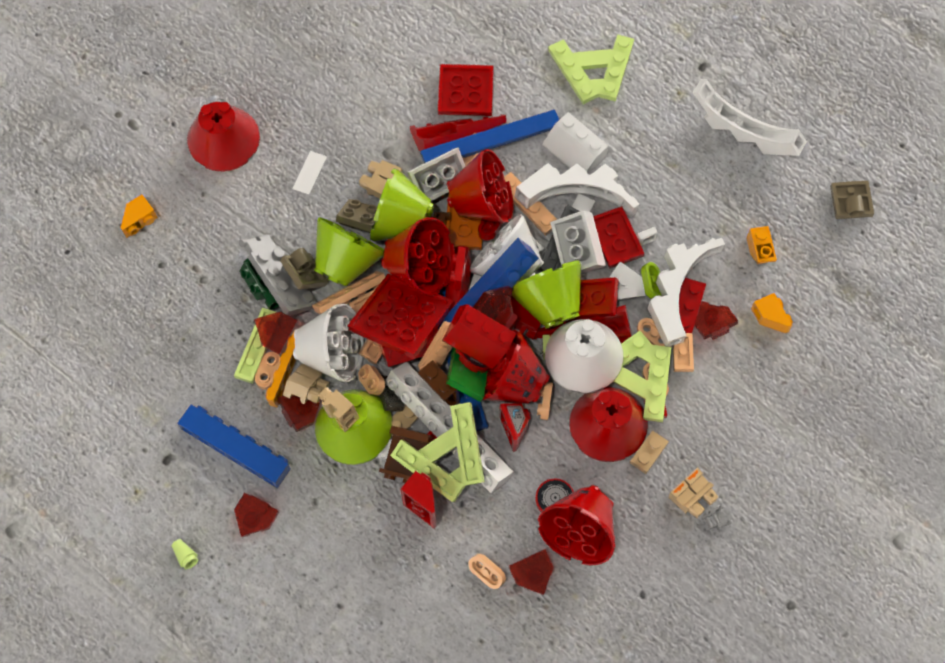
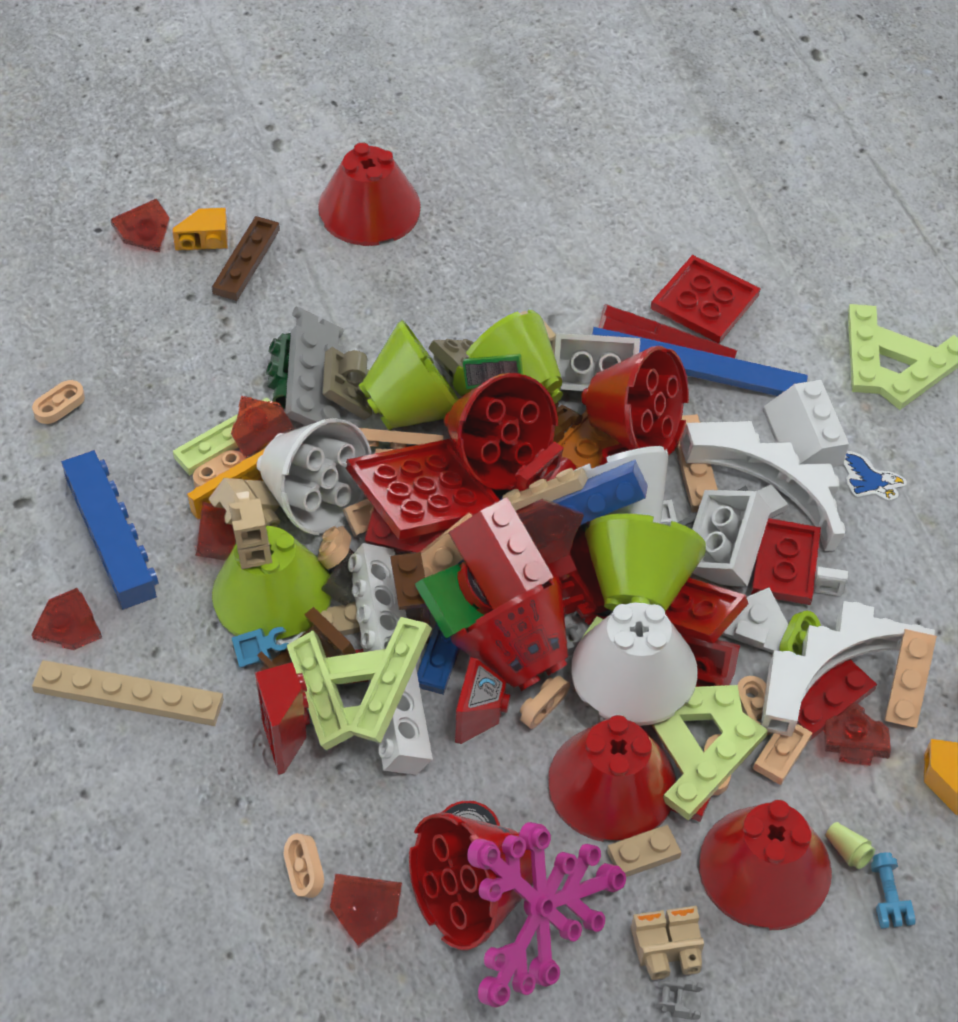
camera: 30 degrees right, 15 degrees down
(97, 234) = (143, 226): none -> clear red plate
(139, 385) = (55, 402): none -> light nougat plate
(177, 219) = (245, 258): none -> reddish brown plate
(309, 172) = (443, 292): white sticker -> none
(319, 535) = (128, 692): none -> tan plate
(370, 465) = (250, 644): none -> dark azure plate
(396, 223) = (483, 368): none -> tile
(475, 283) = (564, 484): none -> tan plate
(626, 158) = (867, 480): none -> sticker
(633, 557) = (539, 905): none -> dark pink plant
(712, 422) = (765, 866): none -> red cone
(723, 272) = (910, 678): none -> light nougat plate
(747, 384) = (851, 846): none -> yellowish green cone
(786, 404) = (884, 864): none -> dark azure hinge

